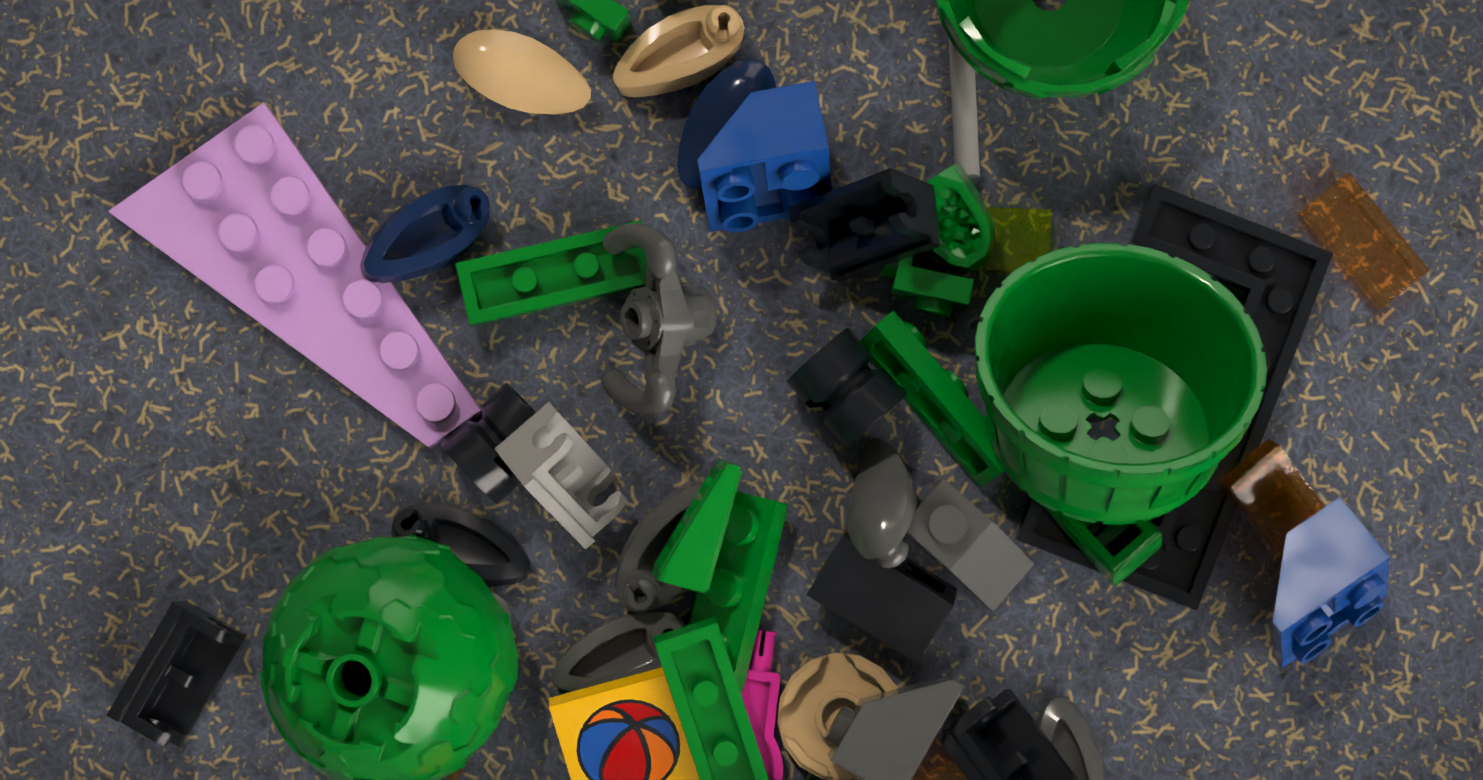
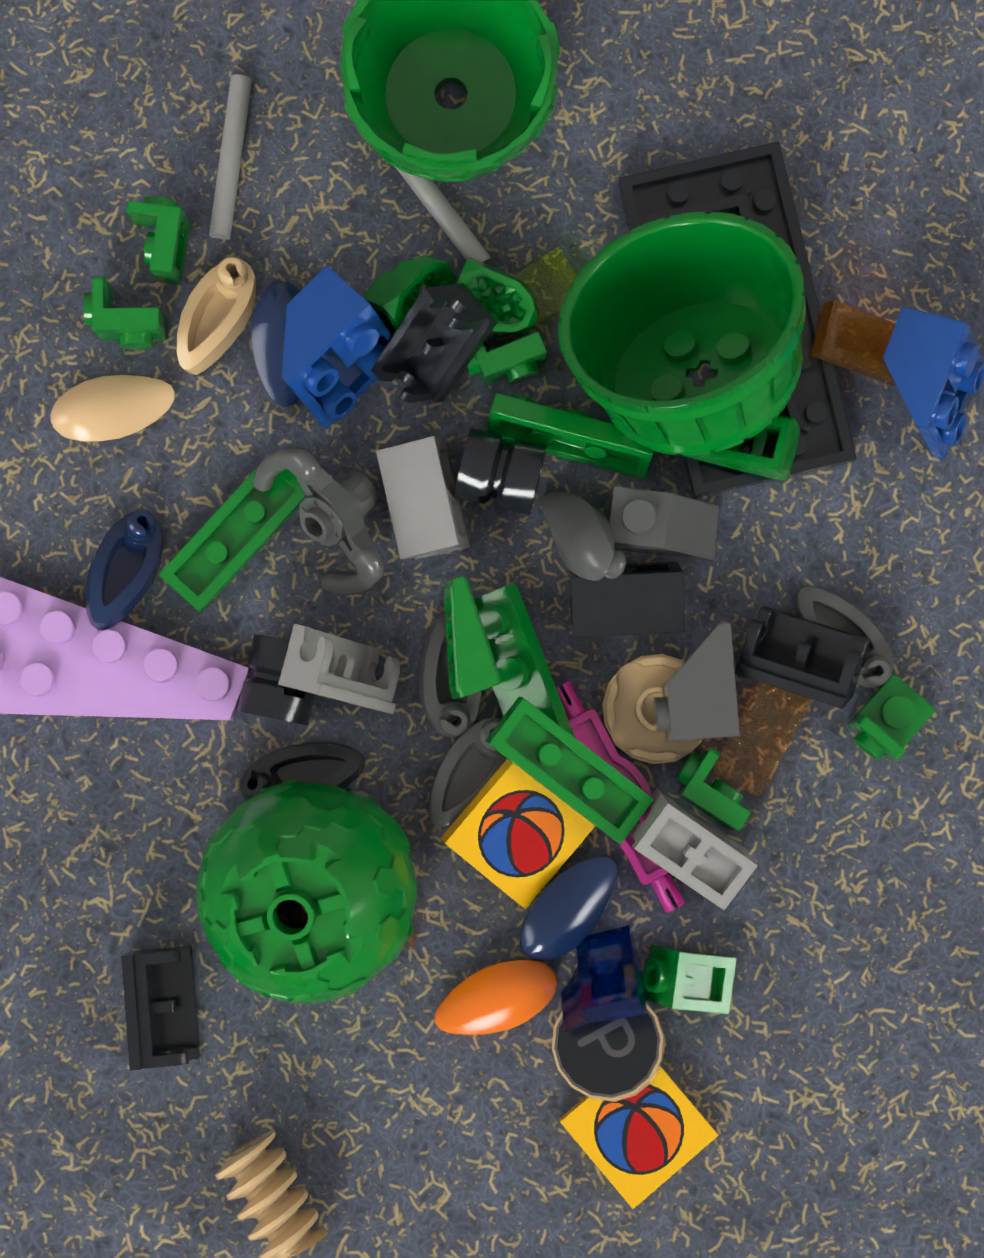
camera: 35 degrees left, 0 degrees up
(754, 362) = (422, 498): none -> light grey hinge
(867, 150) = (397, 291): none -> green rock
(1362, 241) = (794, 119): clear orange tile -> none

